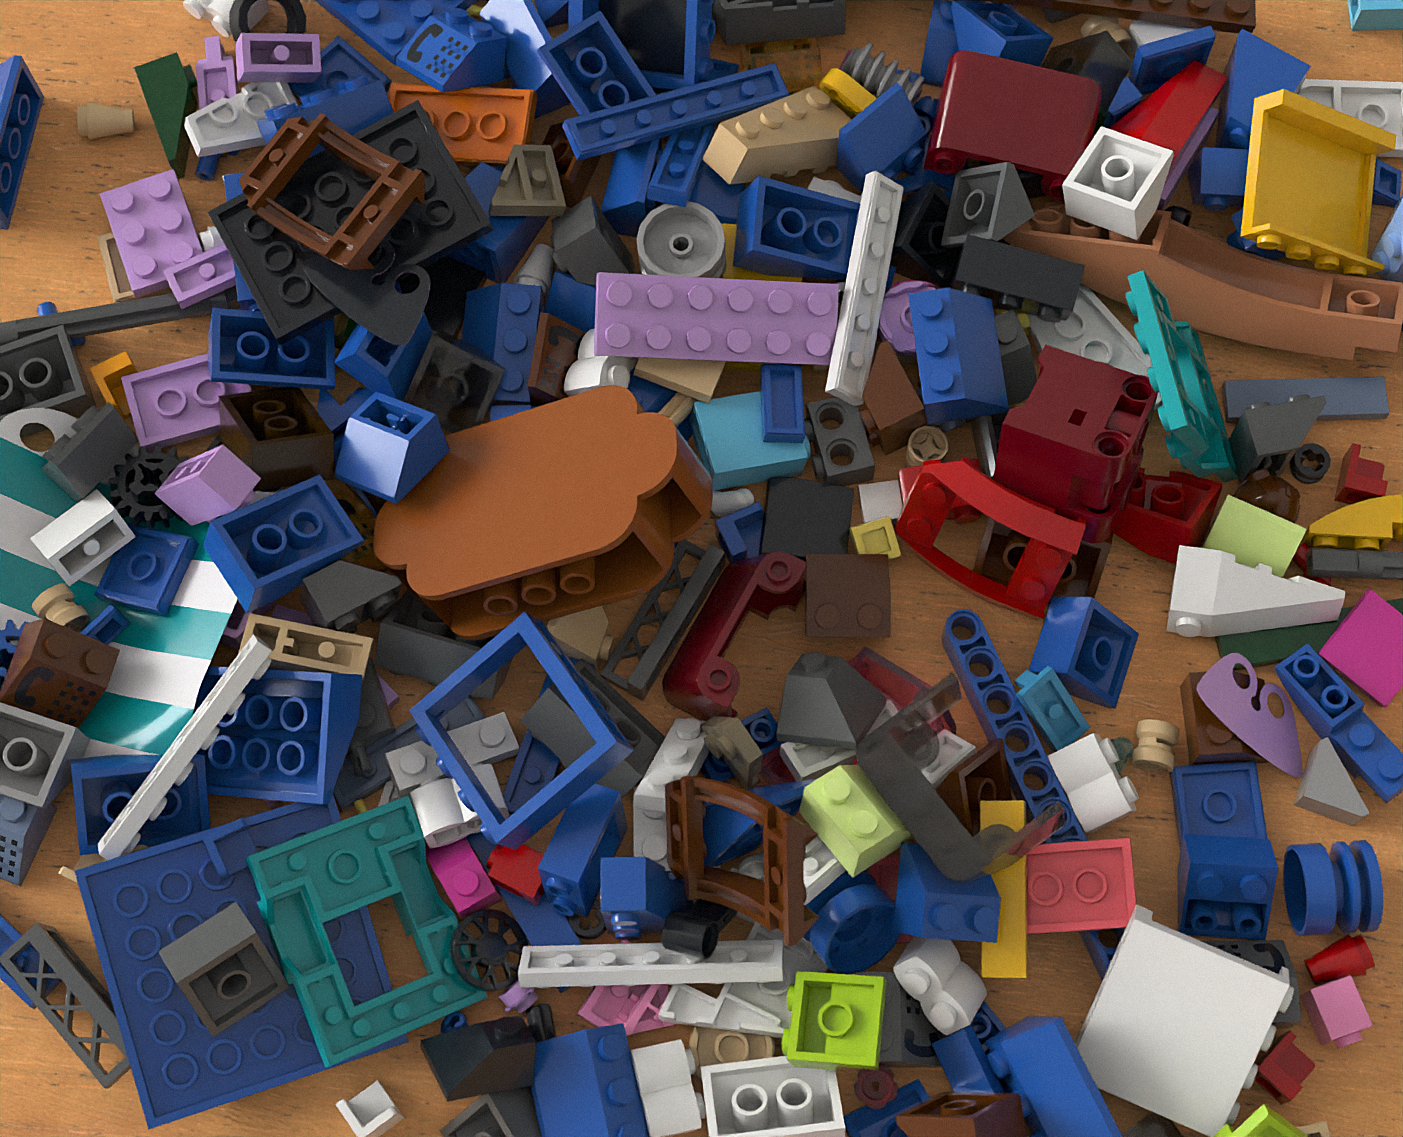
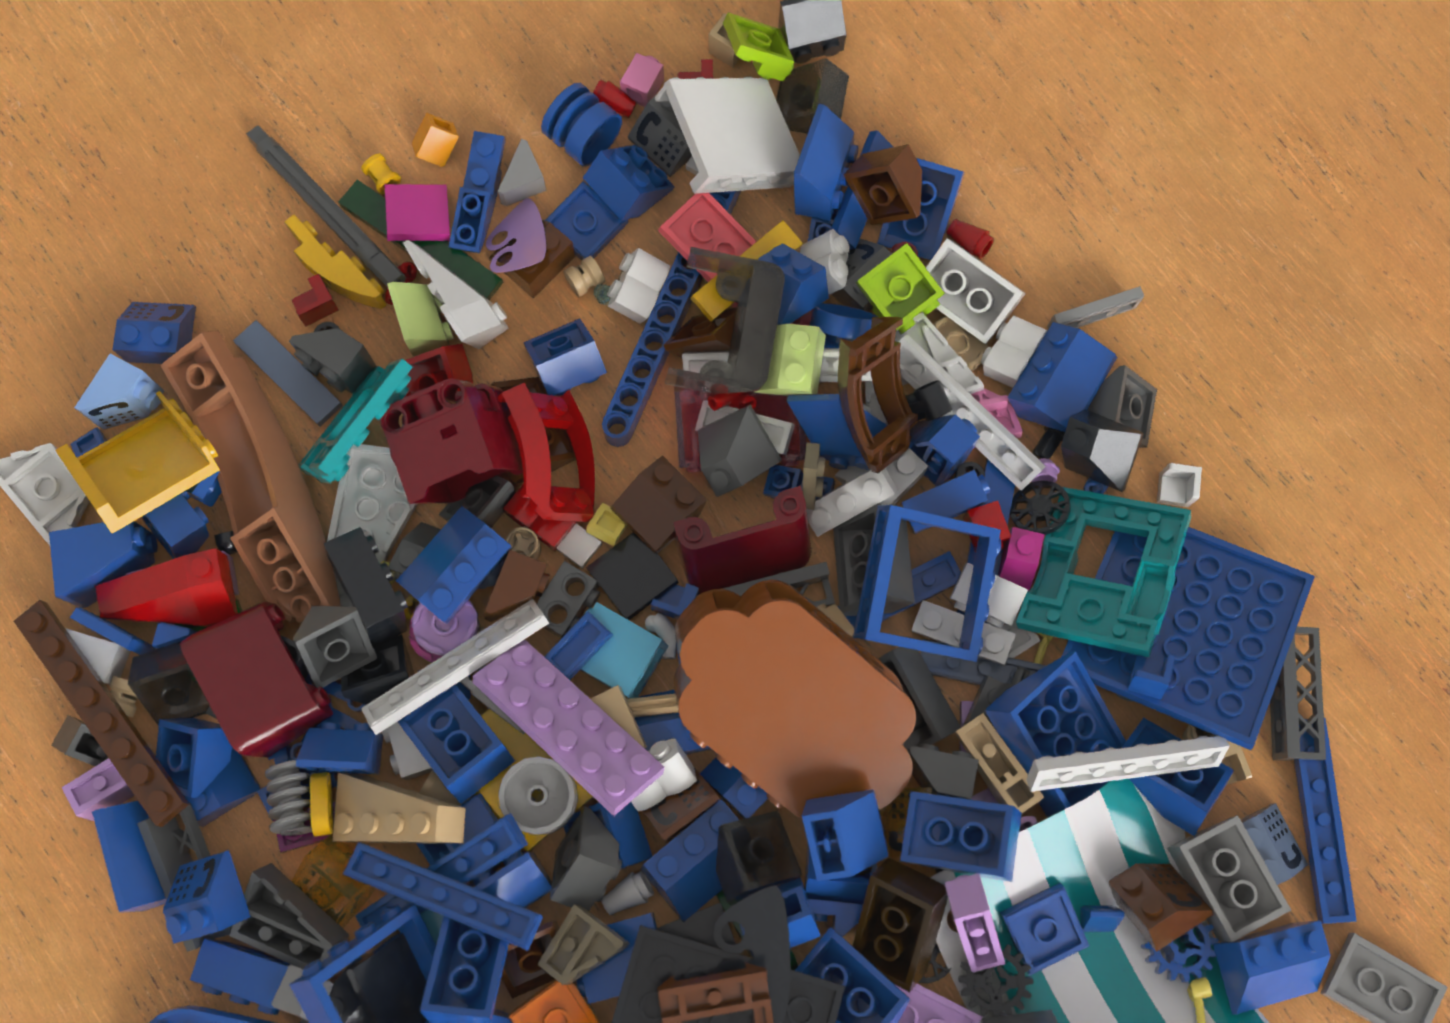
camera: 140 degrees left, 5 degrees up
(58, 606) = (1120, 950): tan wheel -> none
(83, 537) = (1070, 986): white brick -> none
(223, 969) = (1208, 616): dark grey slope -> none
(1051, 708) = (617, 342): dark azure plate -> none
(1117, 182) = (244, 571): white slope -> none
(1270, 494) = (381, 335): reddish brown helmet -> none

